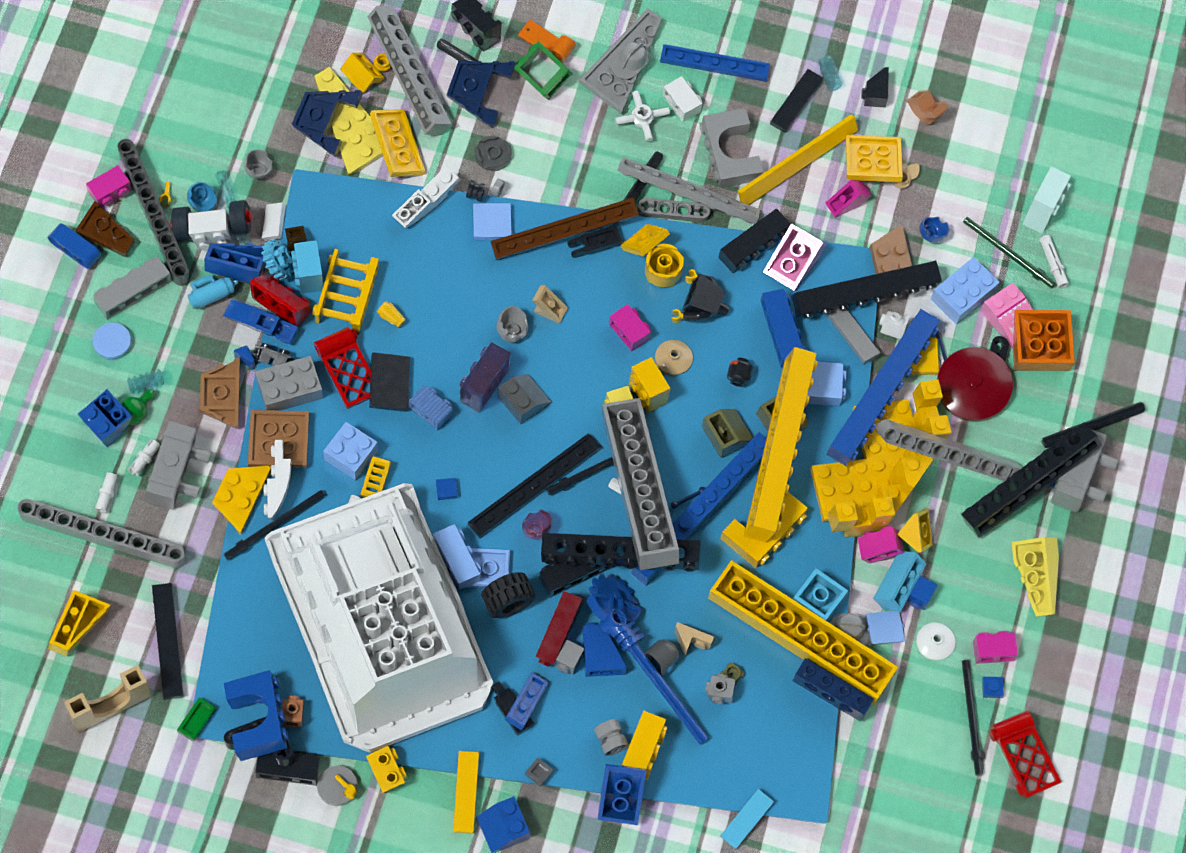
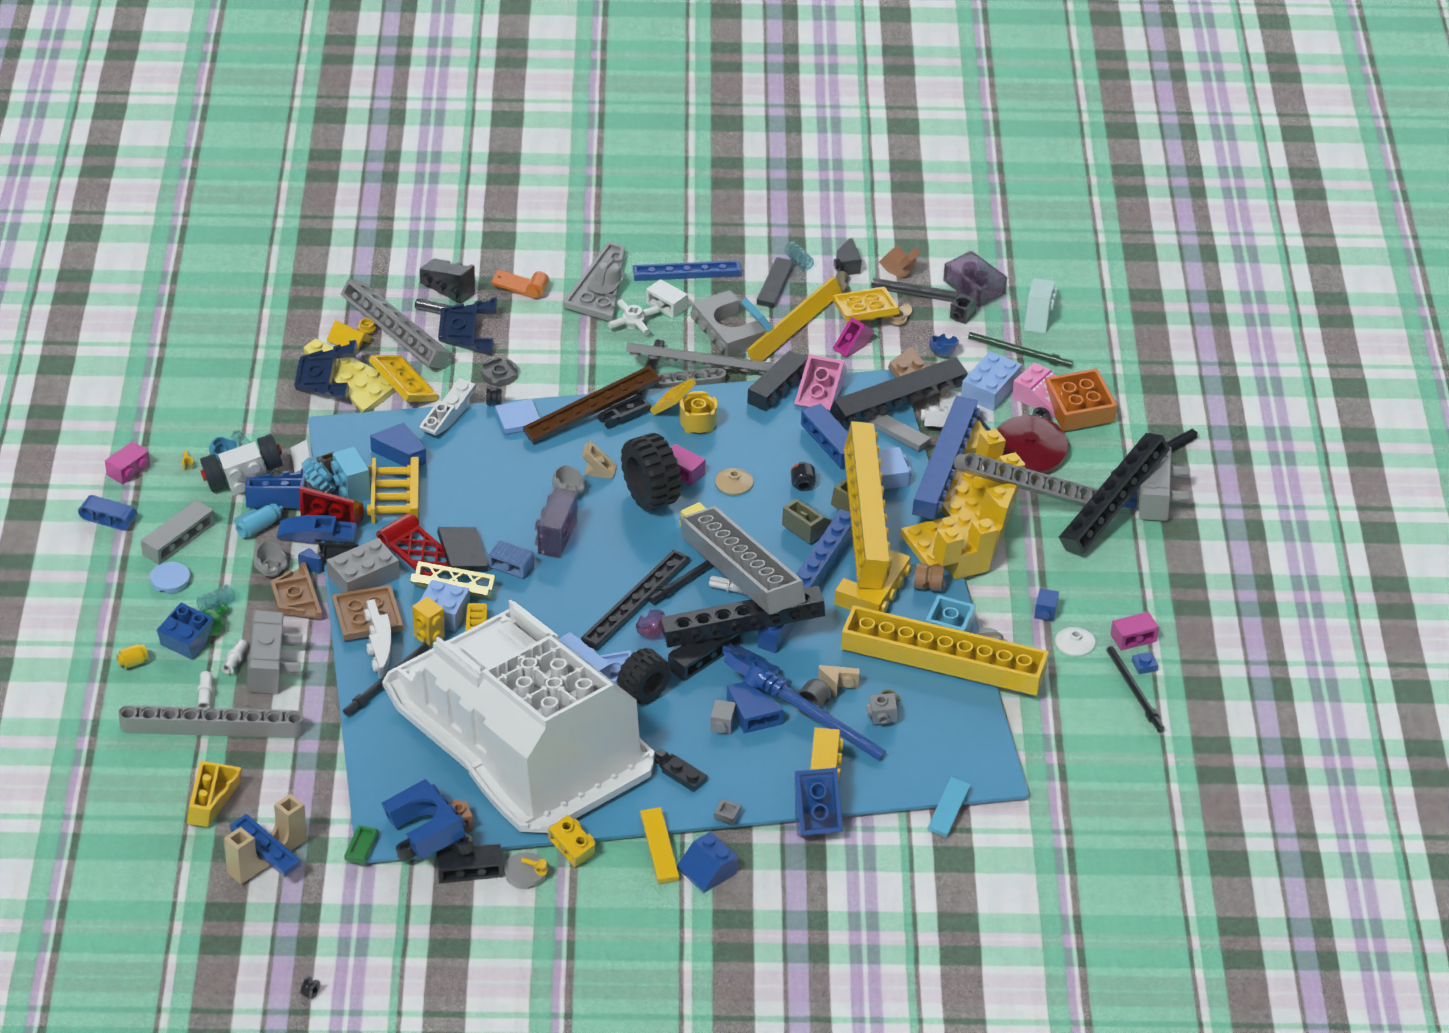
camera: 10 degrees left, 25 degrees down
(50, 433) = (132, 656): none -> yellow brick
(103, 230) = (139, 498): reddish brown wing -> none
(107, 703) = (268, 847): none -> blue plate
(154, 219) = (180, 472): dark grey beam -> none
(167, 641) = (309, 794): black tile -> none
(207, 346) = (270, 558): none -> light grey hair
(240, 493) = (343, 662): yellow wing -> none
(257, 164) = (270, 418): light grey hair -> none
(328, 473) = (428, 621): none -> yellow brick
(367, 234) = (398, 445): none -> slope
(369, 429) = (474, 589): none -> light yellow fence
(389, 313) = (444, 499): yellow cone -> none
(446, 488) = (550, 617): blue tile -> none
(497, 187) = (514, 391): light grey tile -> none
(522, 397) = (597, 536): dark grey slope -> none
(526, 701) = (693, 757): blue tile -> none
(555, 82) = (540, 307): green window -> none
(559, 628) = (704, 692): dark red slope -> none
(589, 344) = (651, 471): none -> black tyre
(611, 739) = (785, 764): light grey wheel -> none
(649, 385) = (722, 492): yellow brick -> none
(702, 300) = (745, 430): black torso -> none
(761, 147) = (756, 314): none -> medium azure tile
(817, 534) = (929, 577): none -> medium nougat wheel
(833, 690) = (992, 688): dark blue brick -> none
(860, 116) = (841, 278): none -> dark tan arm
(880, 544) = (992, 573): dark pink brick -> none
(885, 627) = (1024, 636): light blue piece -> none
(899, 581) = (1021, 598): medium azure brick -> none
(918, 531) = (1020, 554): yellow slope -> none
(931, 146) = (916, 290): none -> black axle
(972, 179) = (963, 308): none -> black brick
(993, 151) = (975, 278): none -> clear purple brick
(1010, 732) = (1181, 688): red piece -> none
(1038, 566) = (1149, 565): light yellow wedge -> none
(1057, 269) = (1070, 351): white pin -> none

